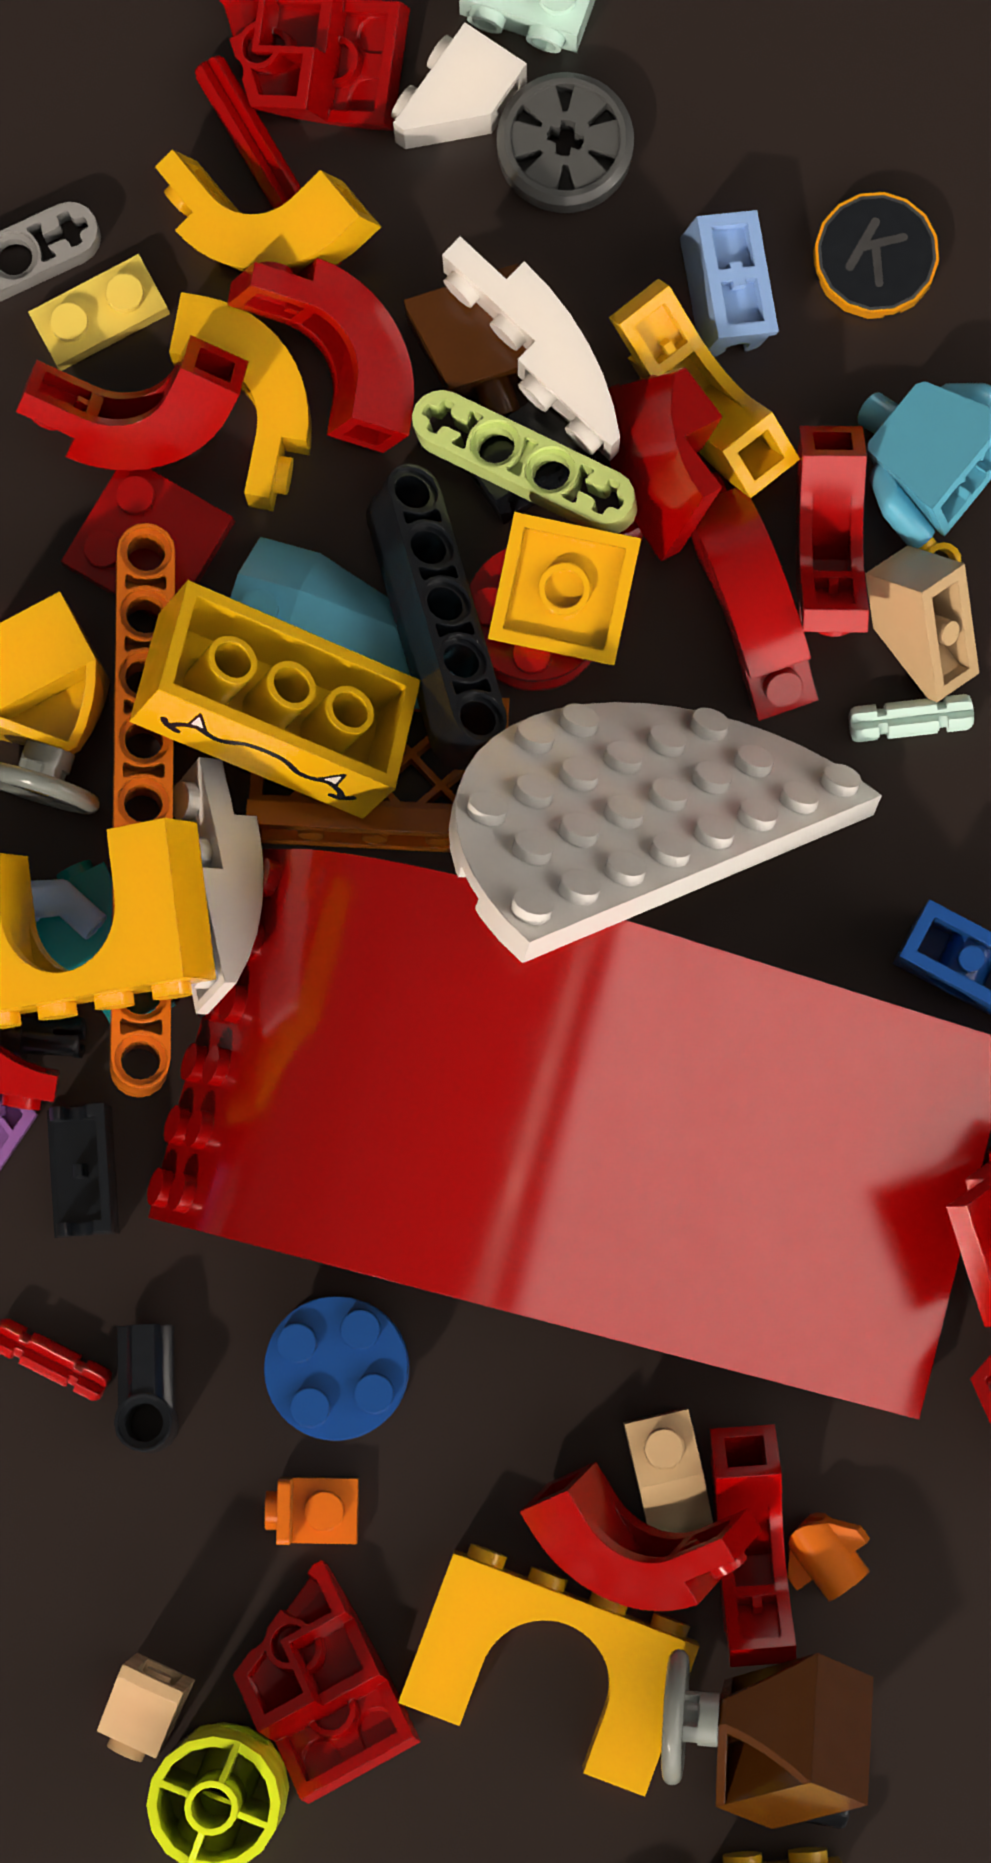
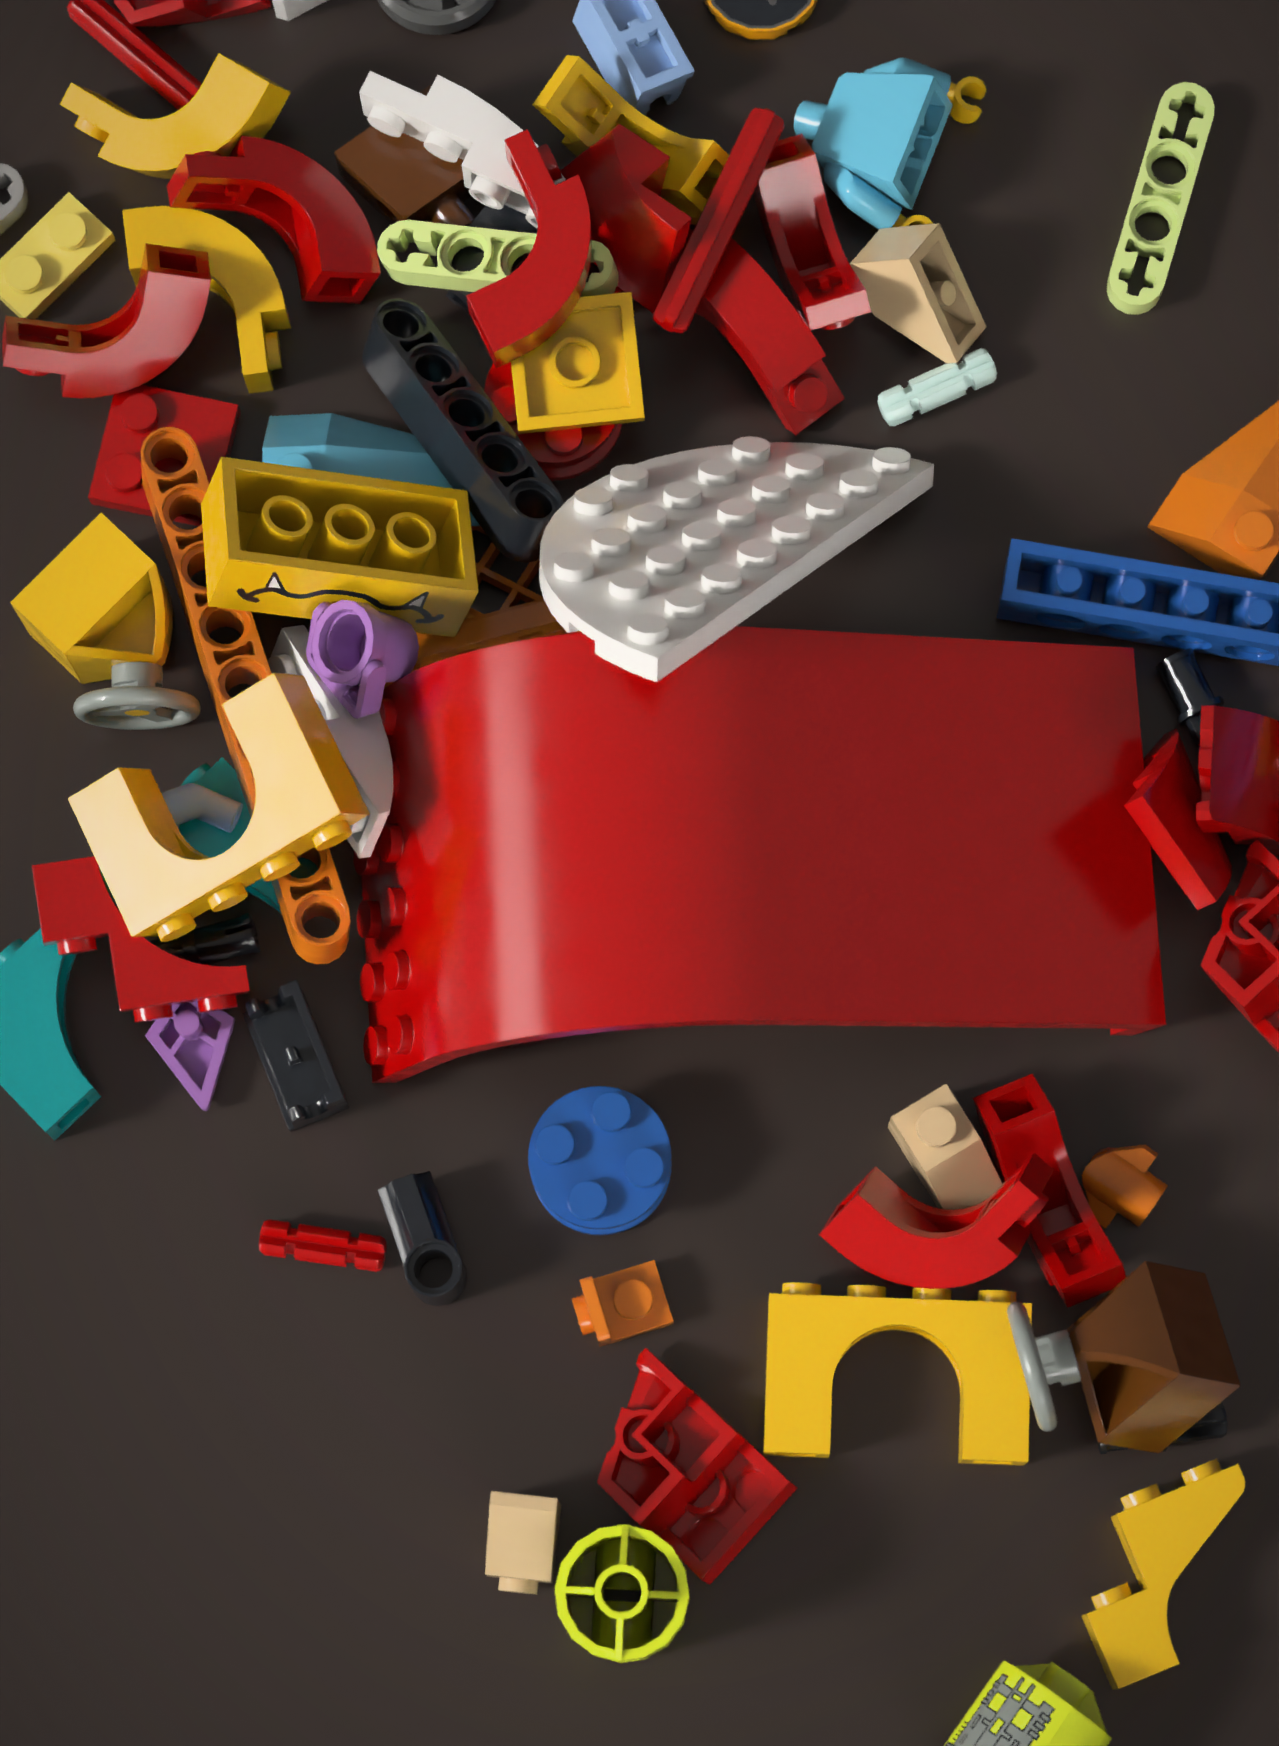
camera: 20 degrees left, 5 degrees down
(262, 811) = (360, 646): none -> medium lavender piece
(557, 512) = (543, 291): none -> red arch
(750, 493) = (718, 220): none -> red axle

